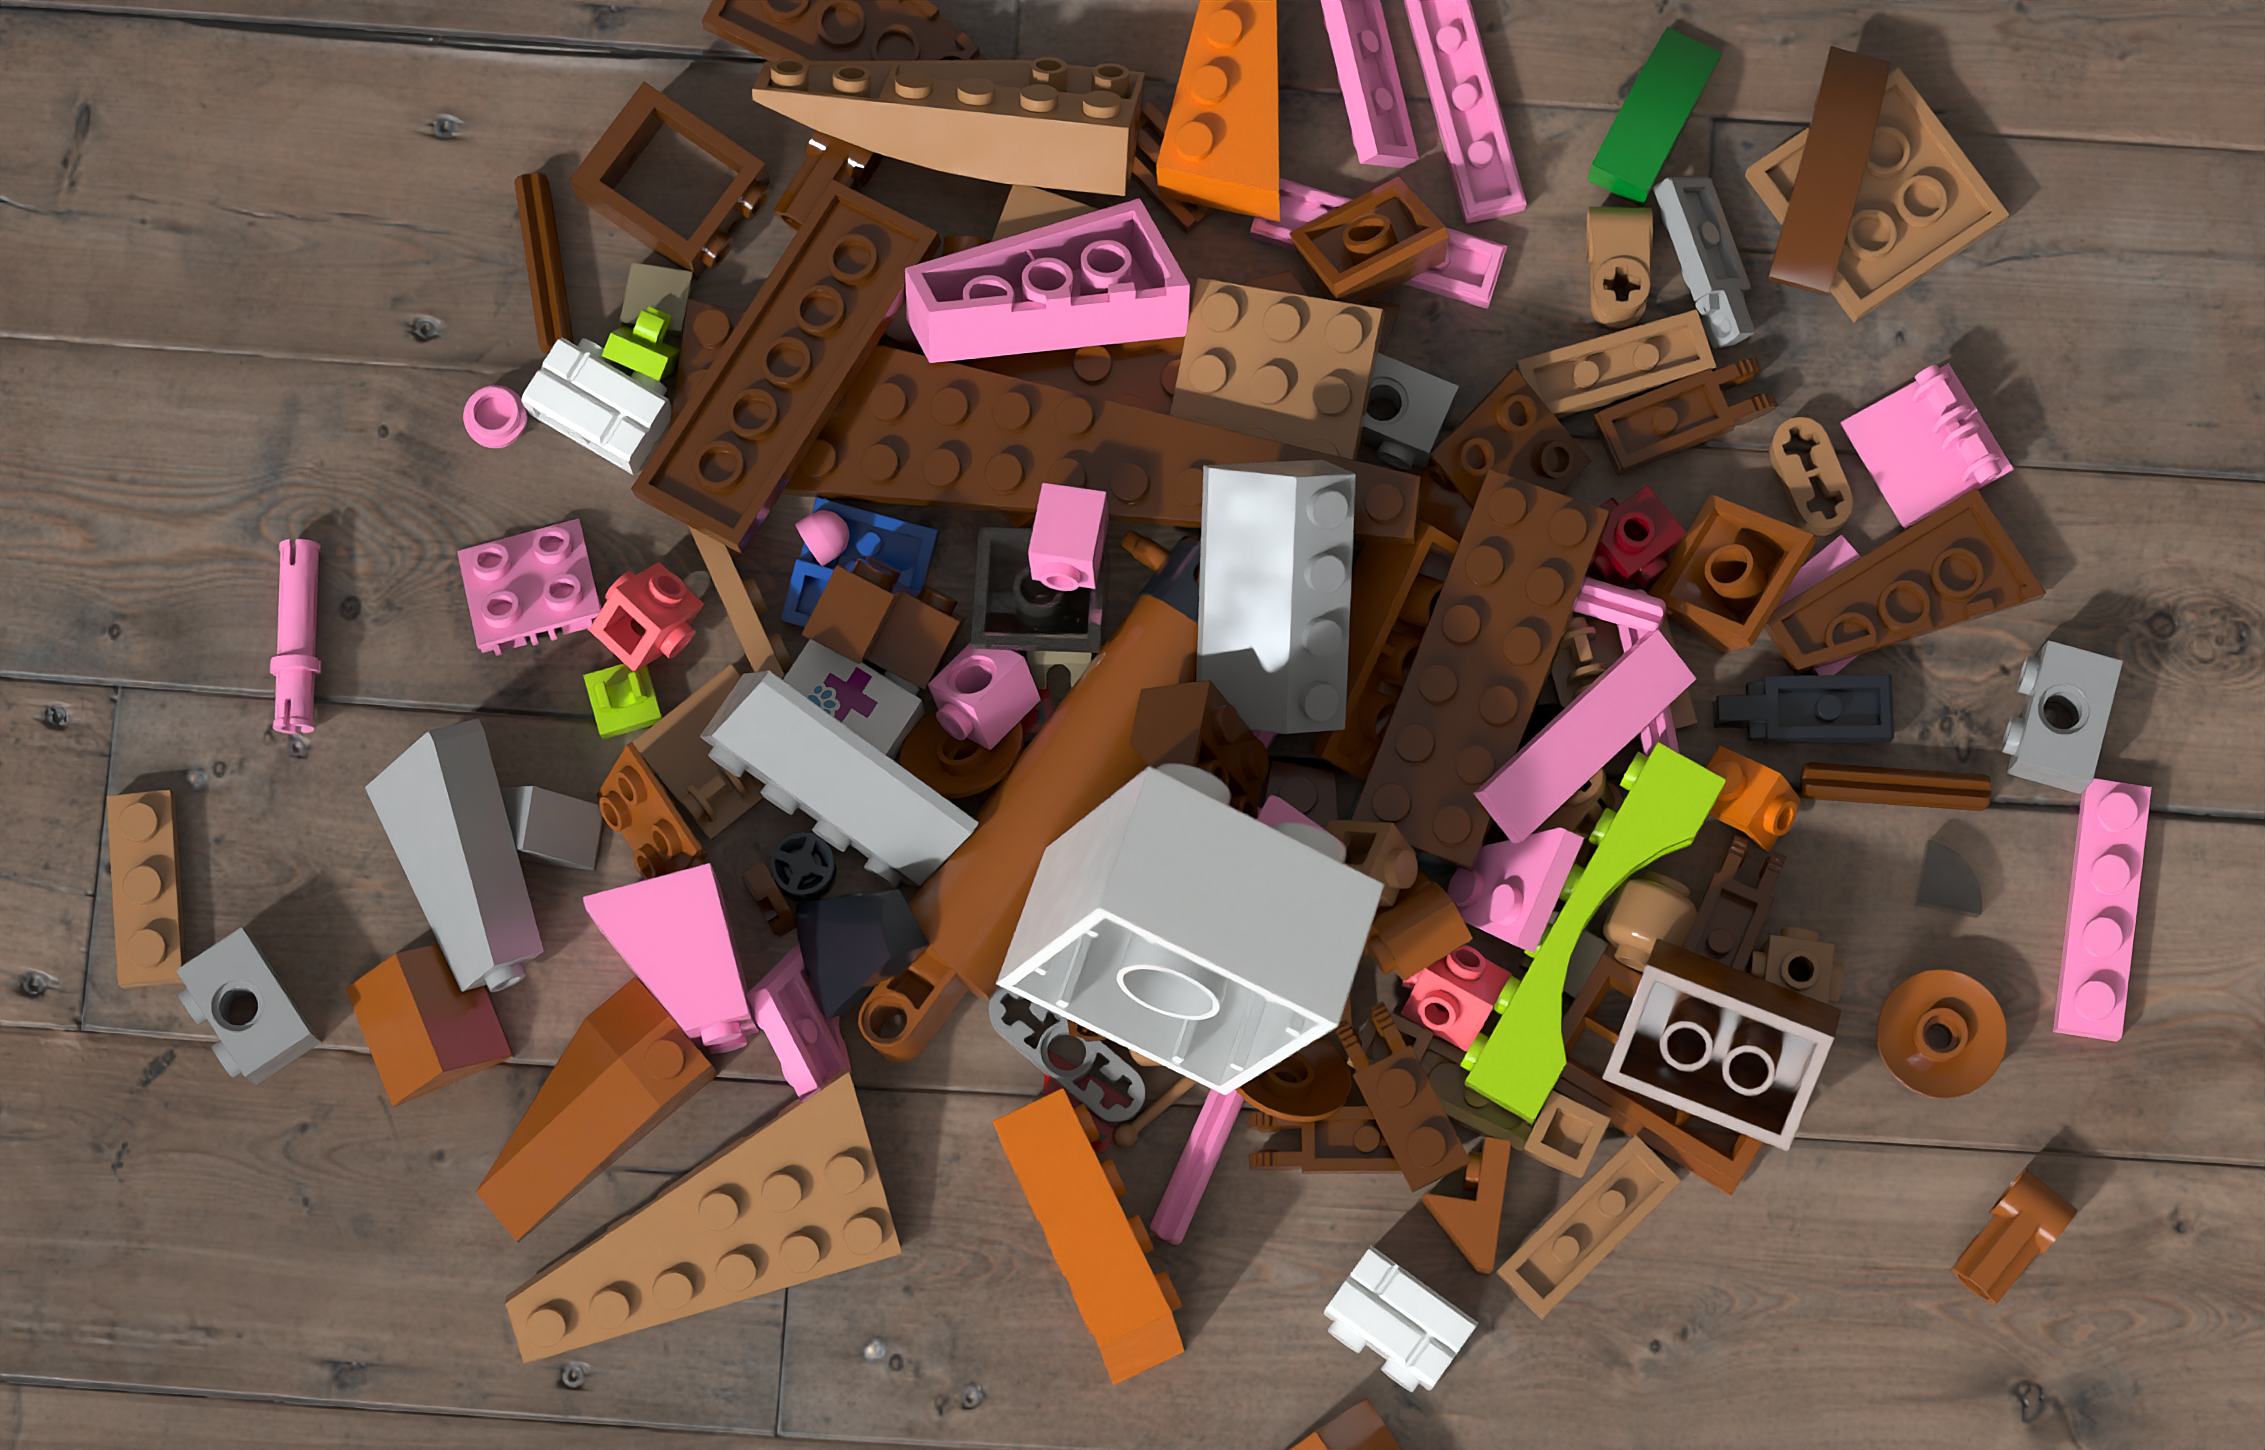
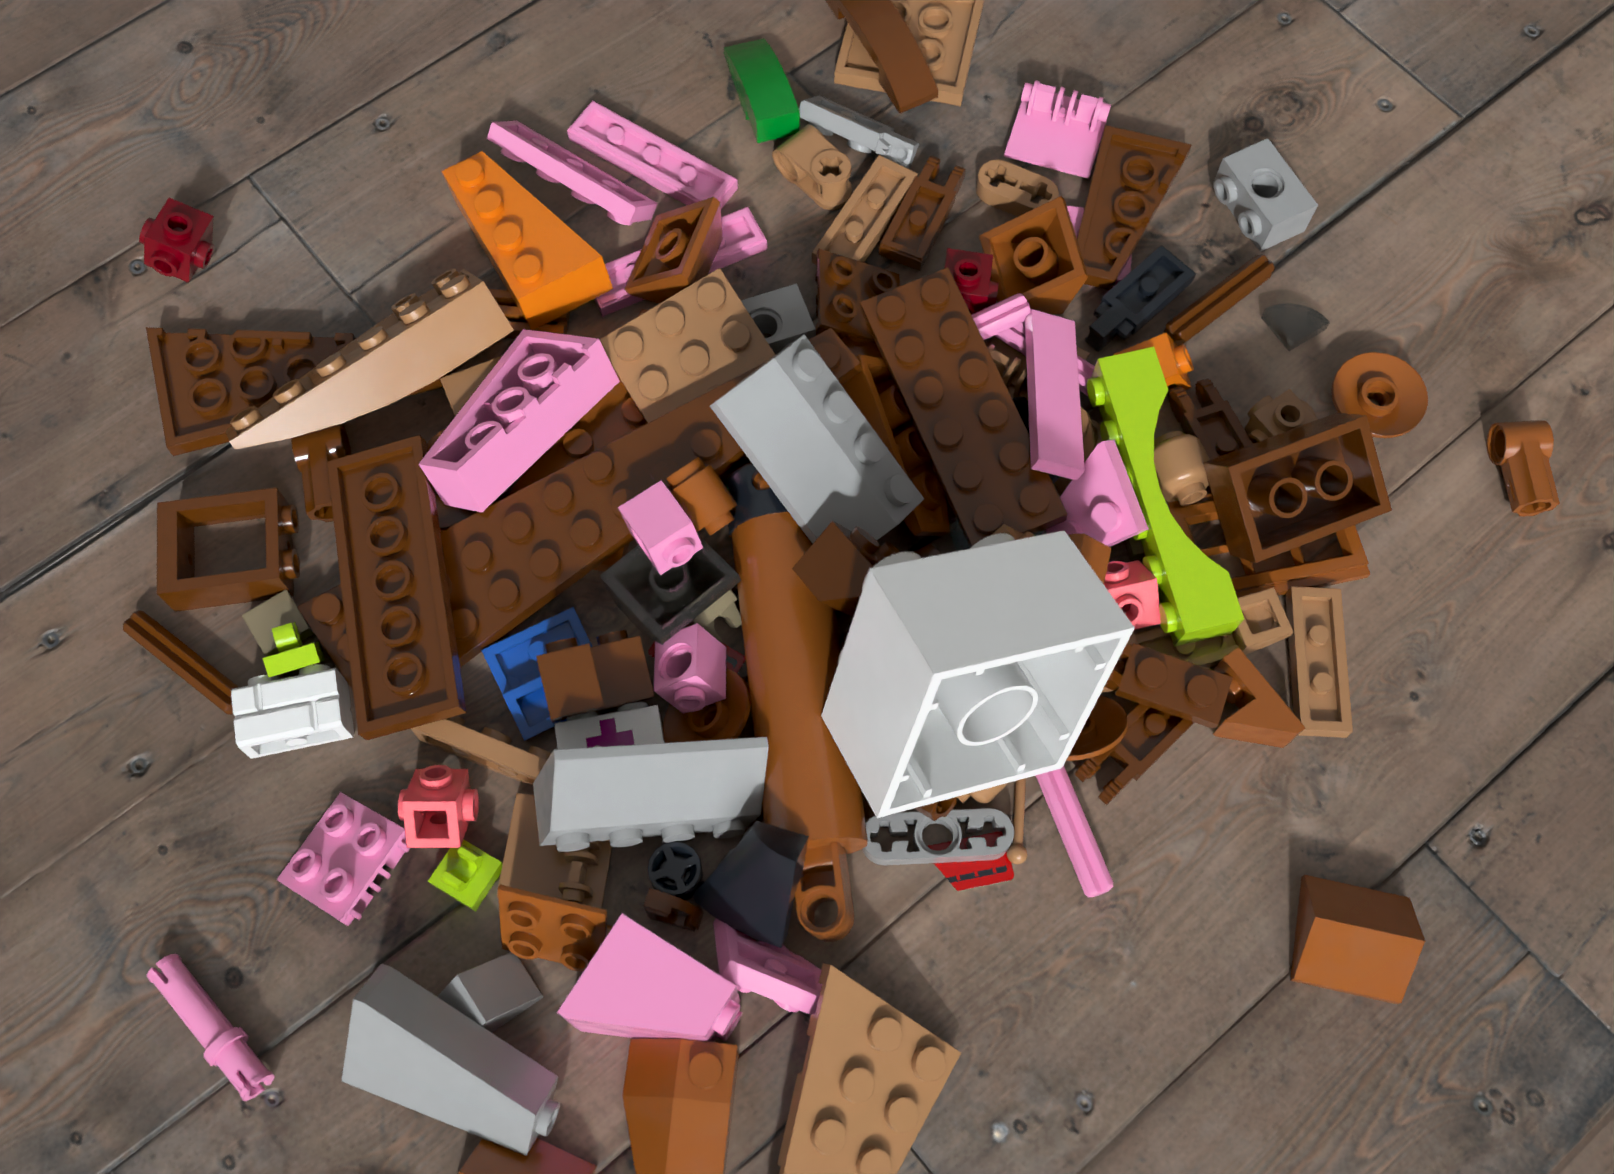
camera: 45 degrees left, 10 degrees down
(495, 416) = (230, 776): bright pink plate -> none
(824, 535) = (506, 665): bright pink hinge -> none
(1090, 1234) = (1063, 926): orange wedge -> none
(1135, 539) = (702, 496): none -> dark orange brick
(1398, 1320) = (1280, 809): white brick -> none
(2102, 910) = (1381, 274): bright pink plate -> none

